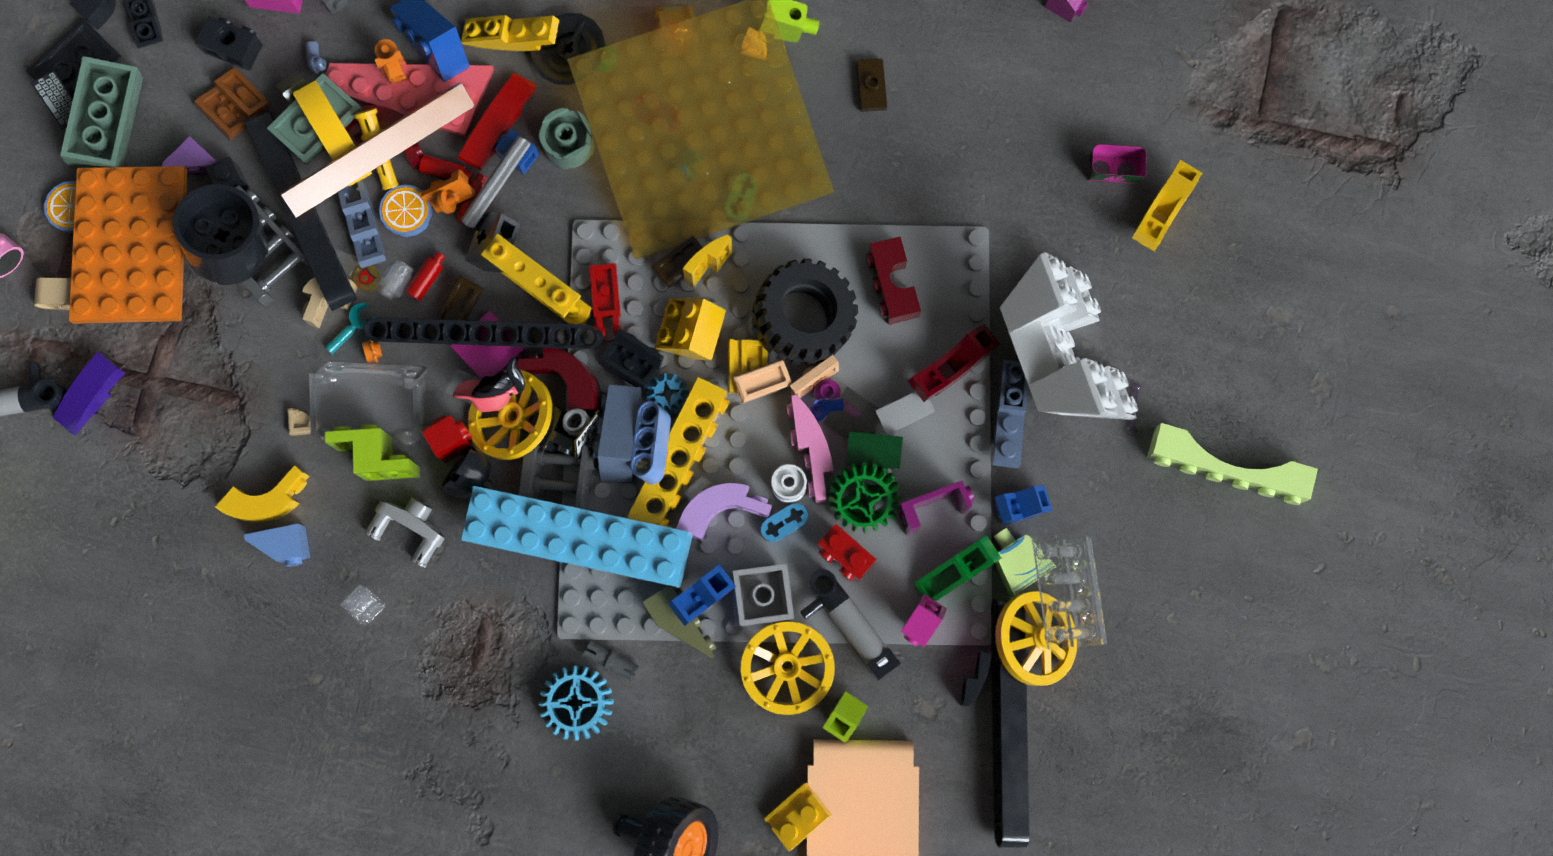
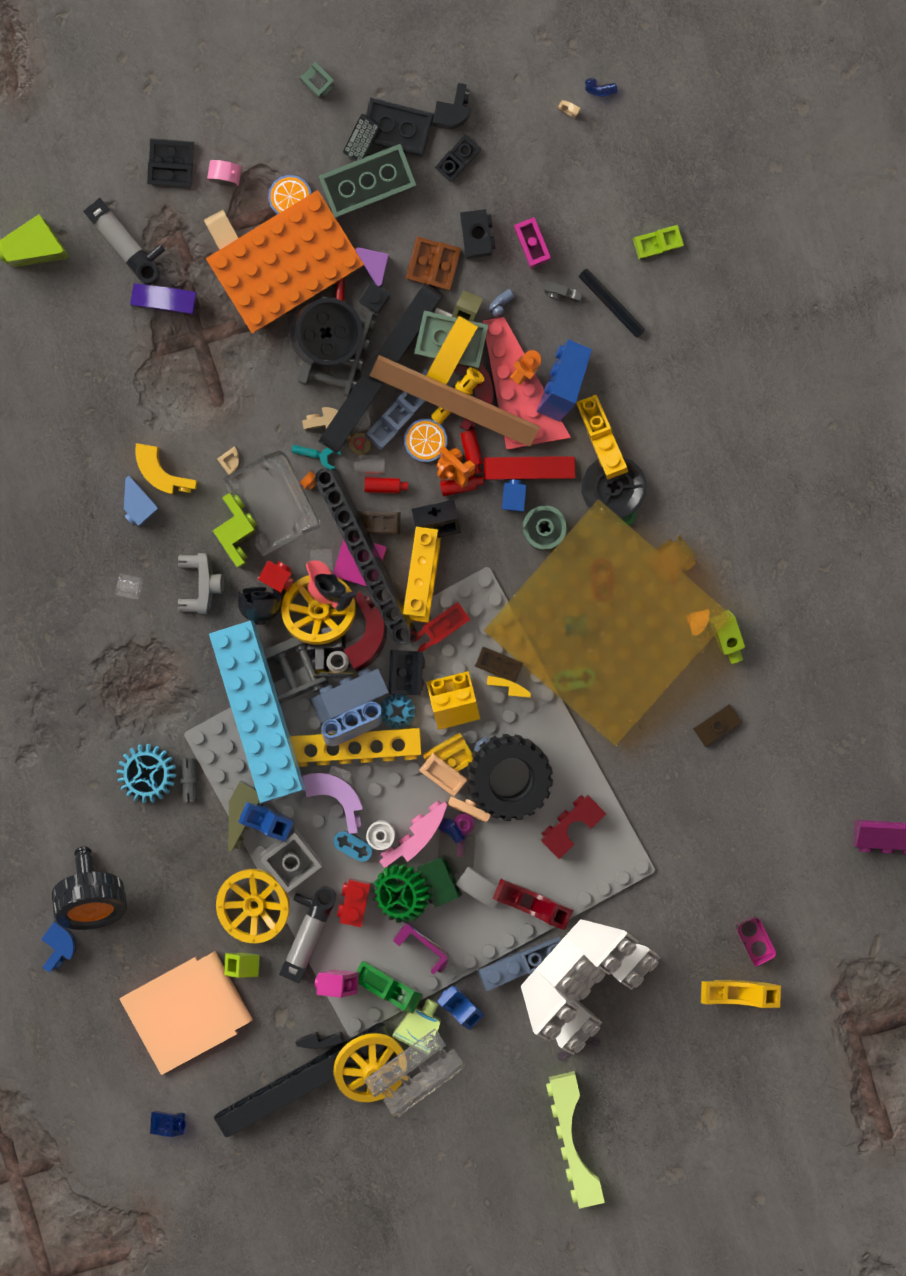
camera: 60 degrees right, 10 degrees up
(495, 181) = (480, 498): light grey axle -> none
(798, 817) = (156, 970): yellow plate -> none

